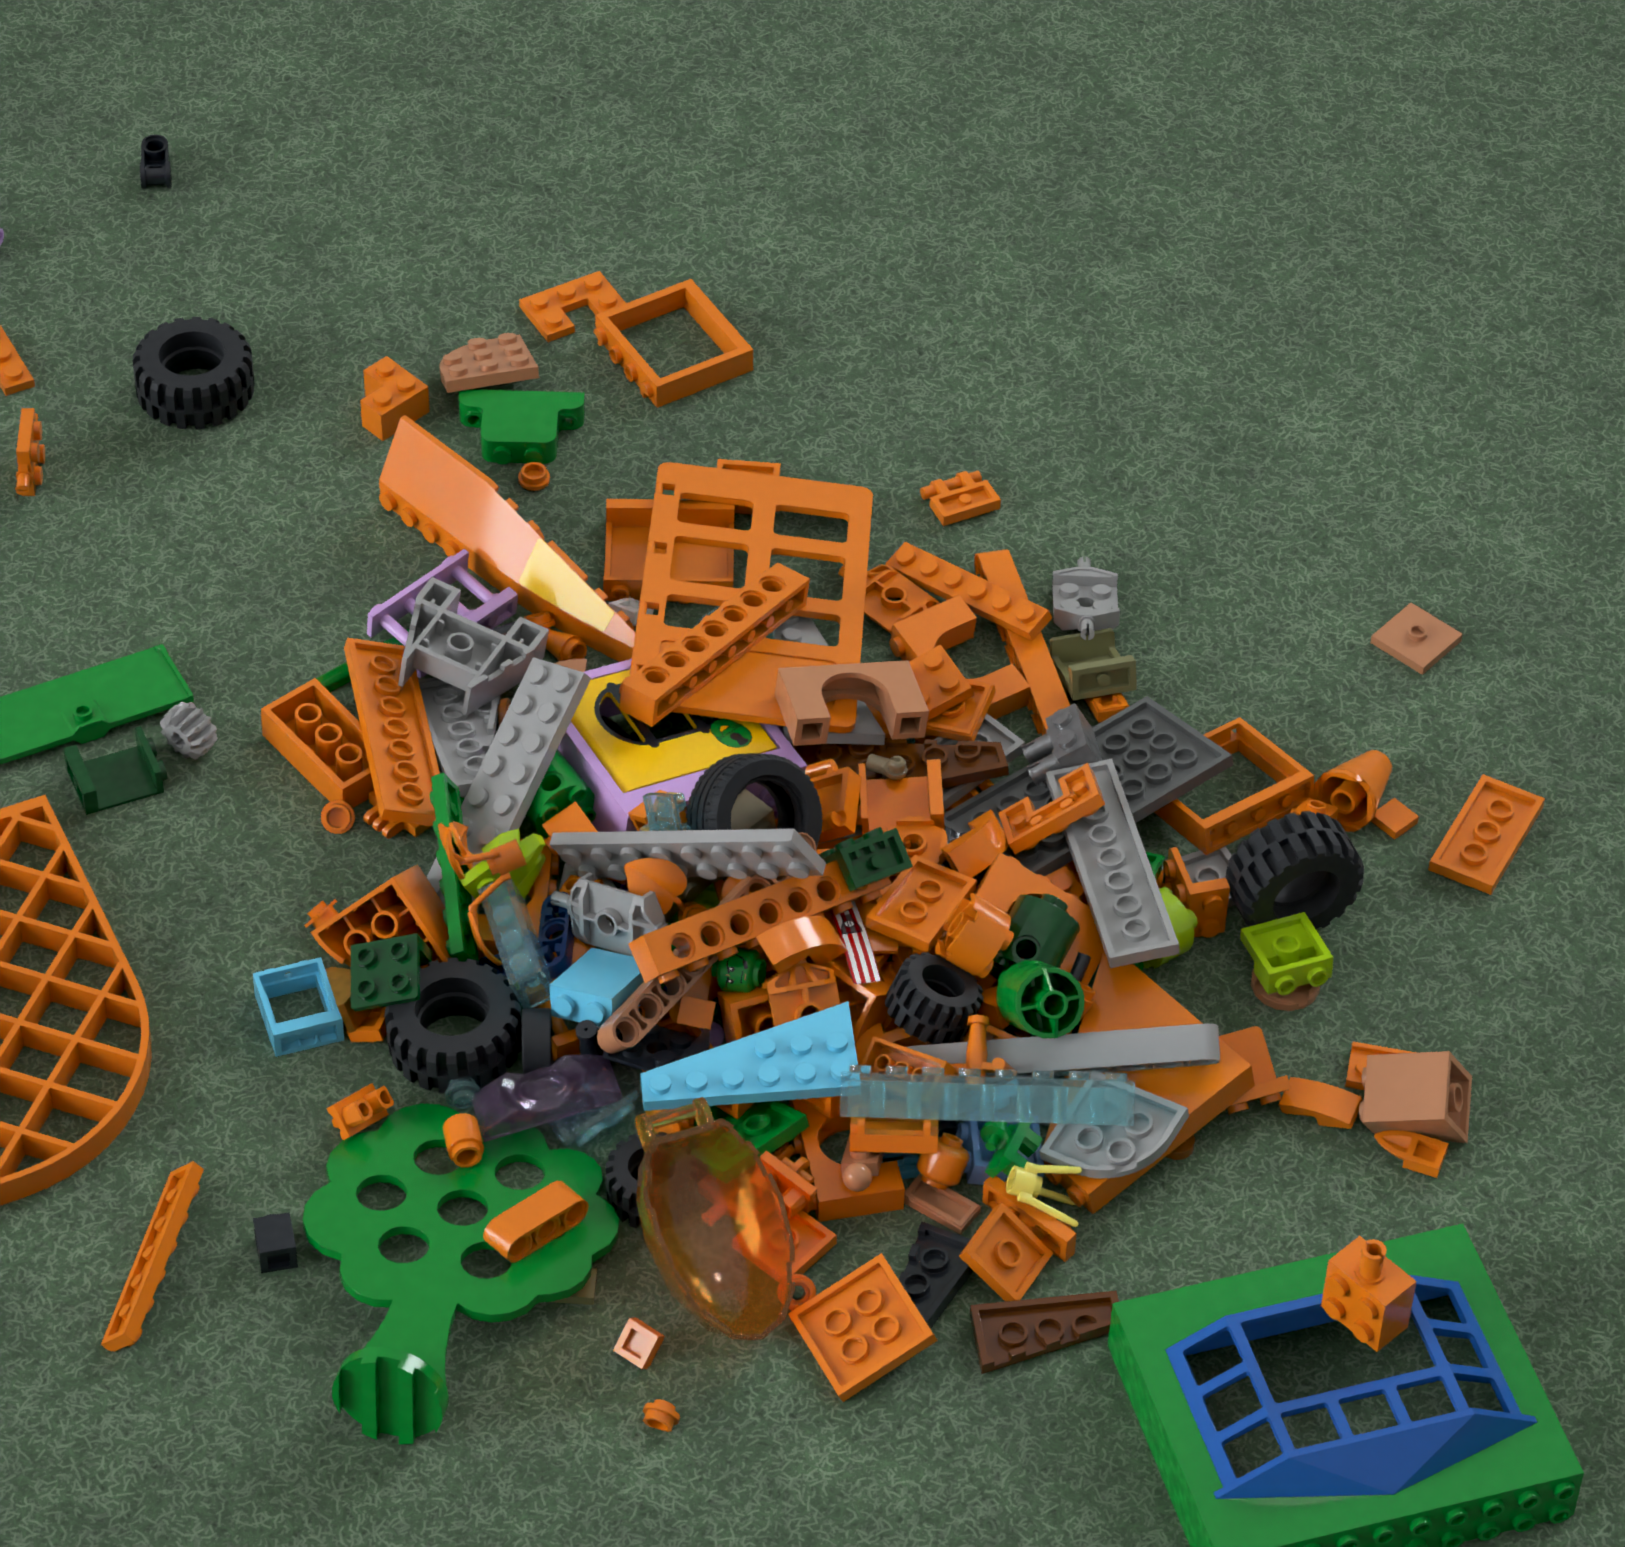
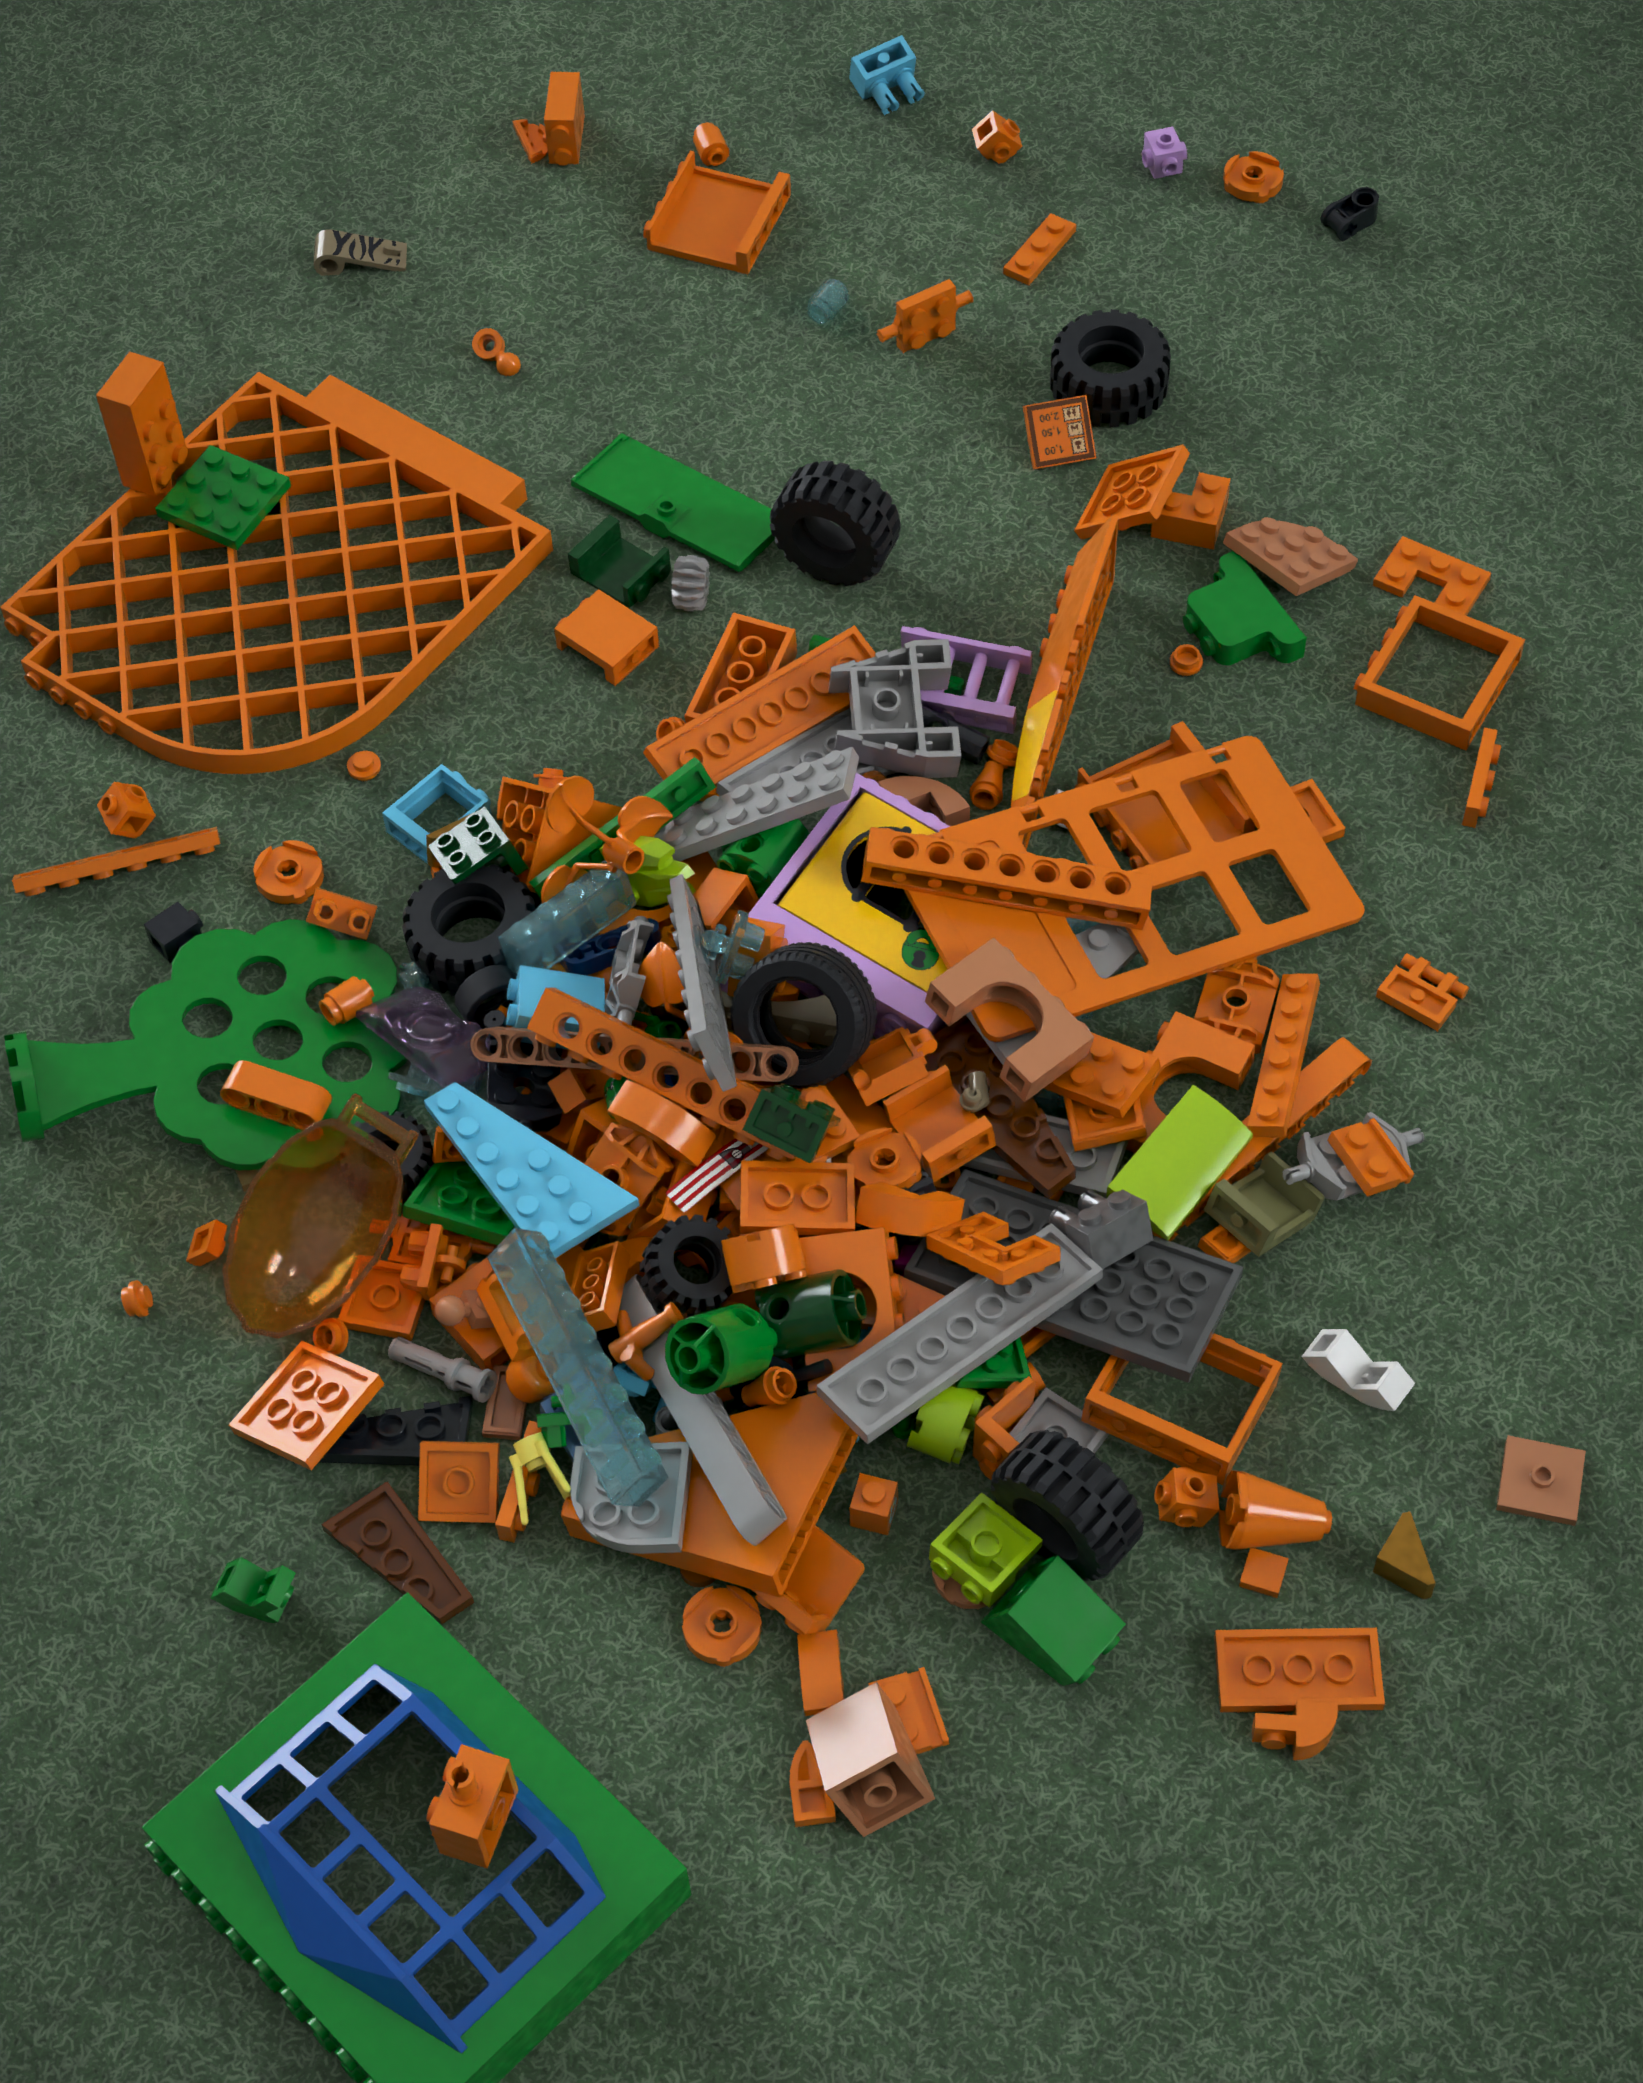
camera: 65 degrees right, 10 degrees up
(66, 203) = (1239, 173): none -> orange plate
(115, 1221) = (126, 810): none -> orange brick
(190, 1039) = (363, 765): none -> orange plate
(191, 810) = (608, 635): none -> orange panel
(211, 578) = (850, 500): none -> black tyre
(234, 434) = (1059, 432): none -> tile
(270, 1154) = (293, 888): none -> orange plate
(346, 418) = (1133, 490): none -> orange plate
(793, 370) = (1482, 778): none -> orange plate
(899, 1217) = (455, 1373): none -> light grey pin
(1022, 1432) = (254, 1590): none -> green brick
(1025, 680) = (1182, 1159): none -> lime slope
(1096, 587) = (1370, 1157): none -> orange plate
(1201, 1000) = (873, 1504): none -> orange brick
(1238, 1164) = (721, 1603): none -> orange plate
(1252, 692) = (1347, 1366): none -> white brick
(1368, 944) = (1055, 1621): none -> green slope
(1436, 733) = (1404, 1559): none -> pearl gold slope
(1535, 853) = (1306, 1729): none -> orange brick

